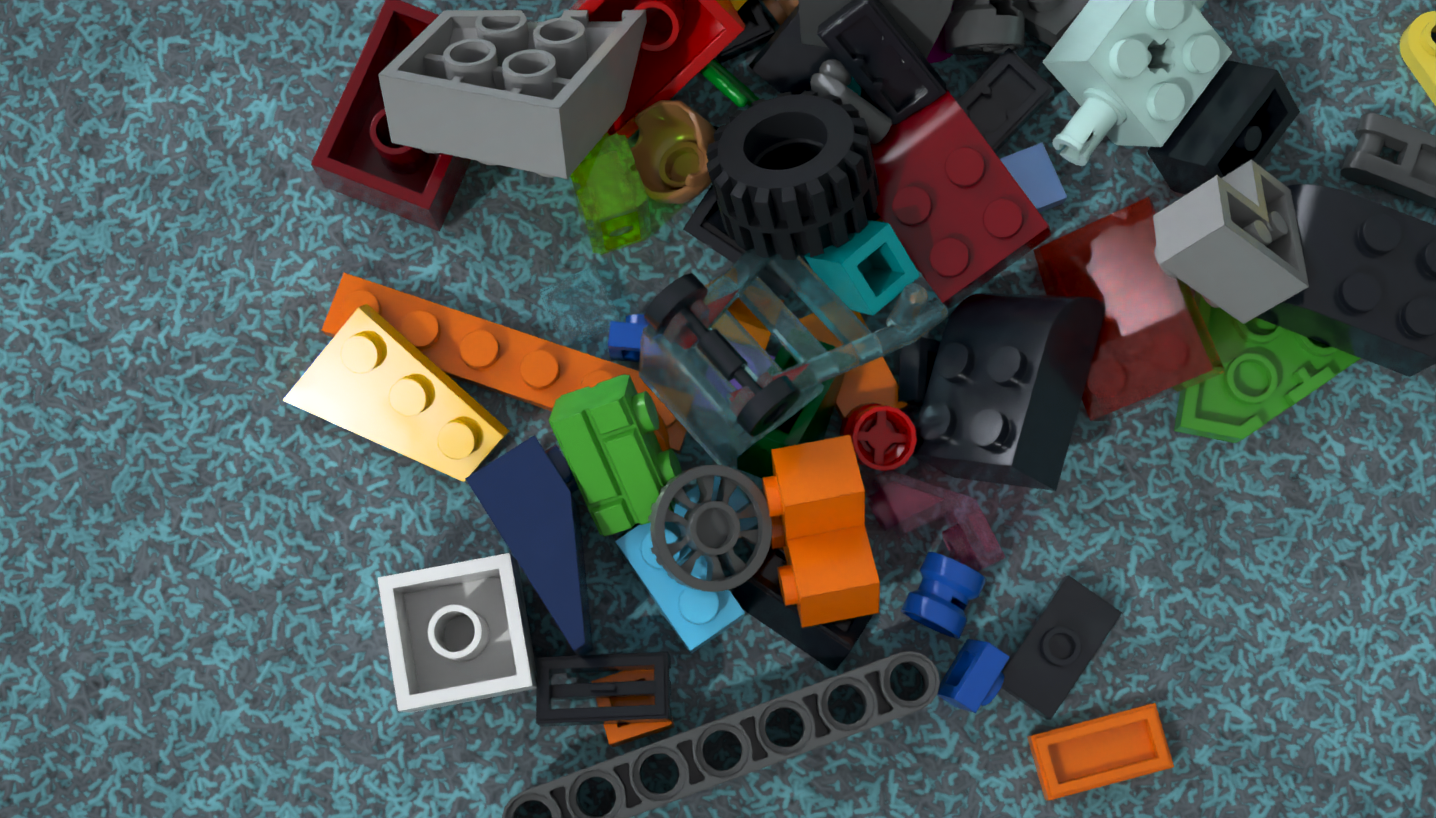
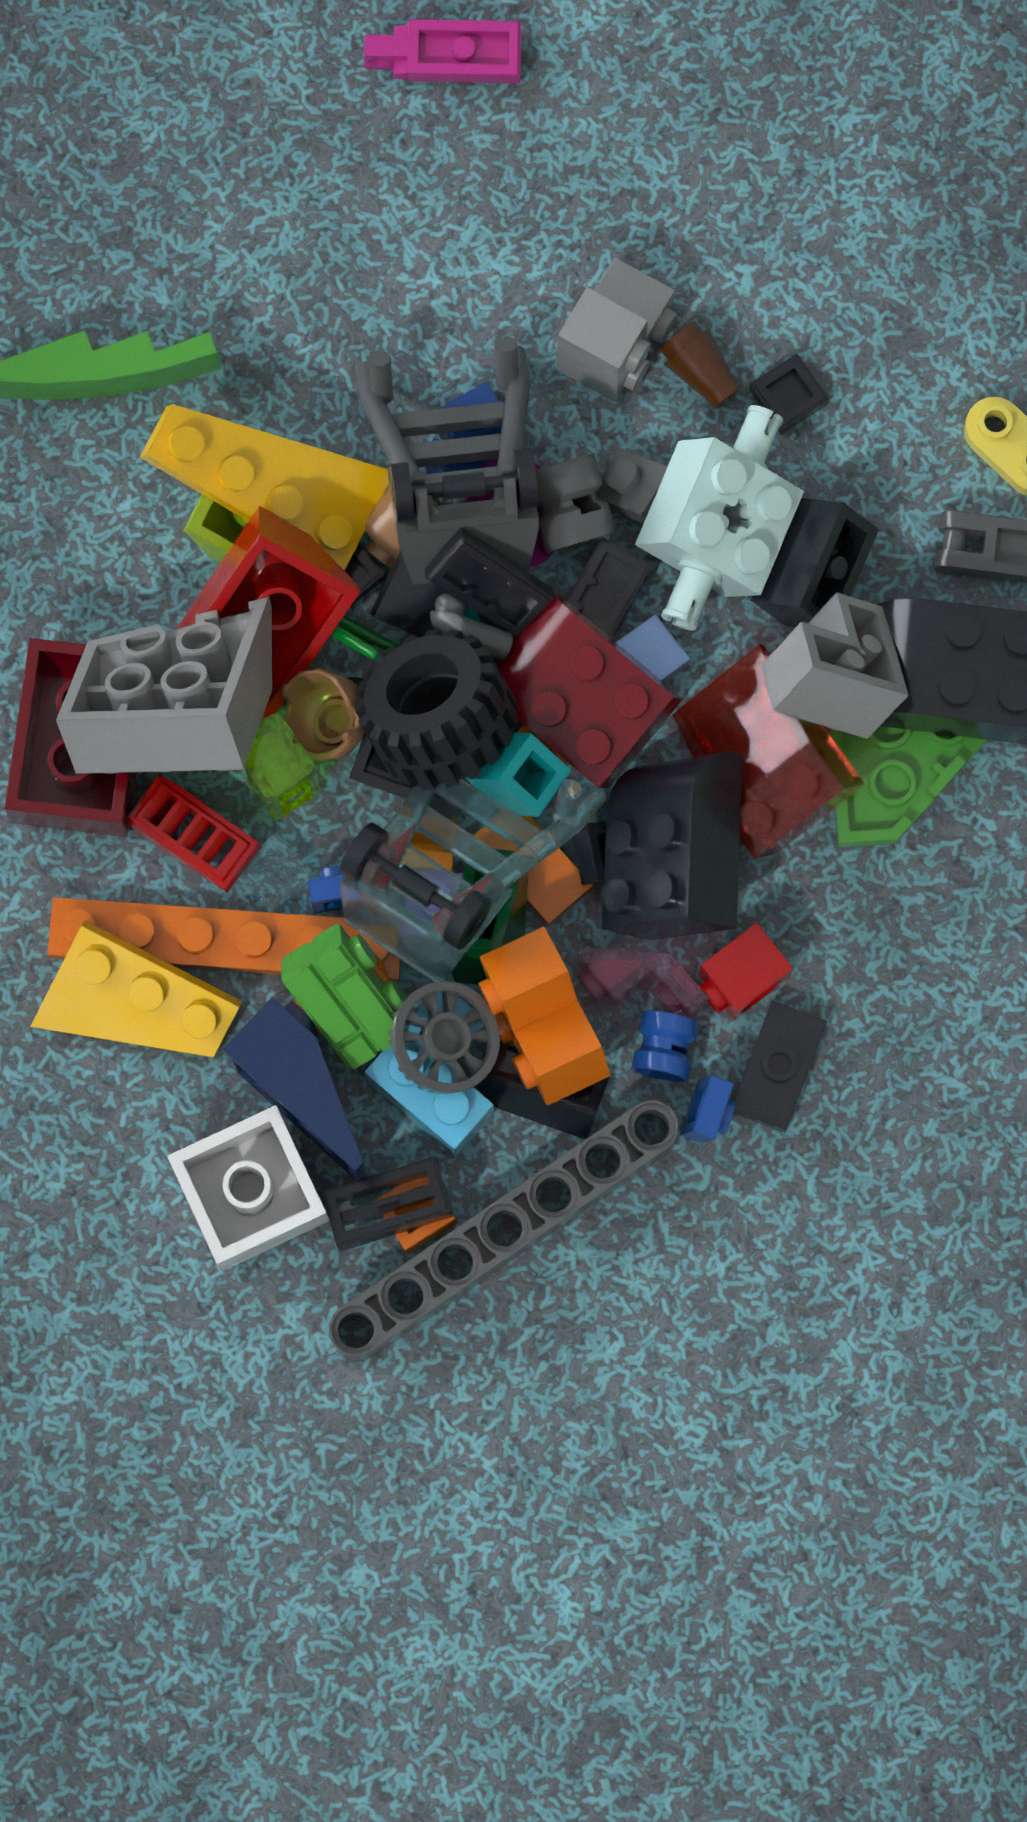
camera: 10 degrees left, 0 degrees up
(480, 213) = (164, 810): none -> red slope
(890, 438) = (582, 920): red wheel -> none
(1047, 537) = (743, 972): none -> red brick
(1100, 751) = (837, 1147): orange tile -> none

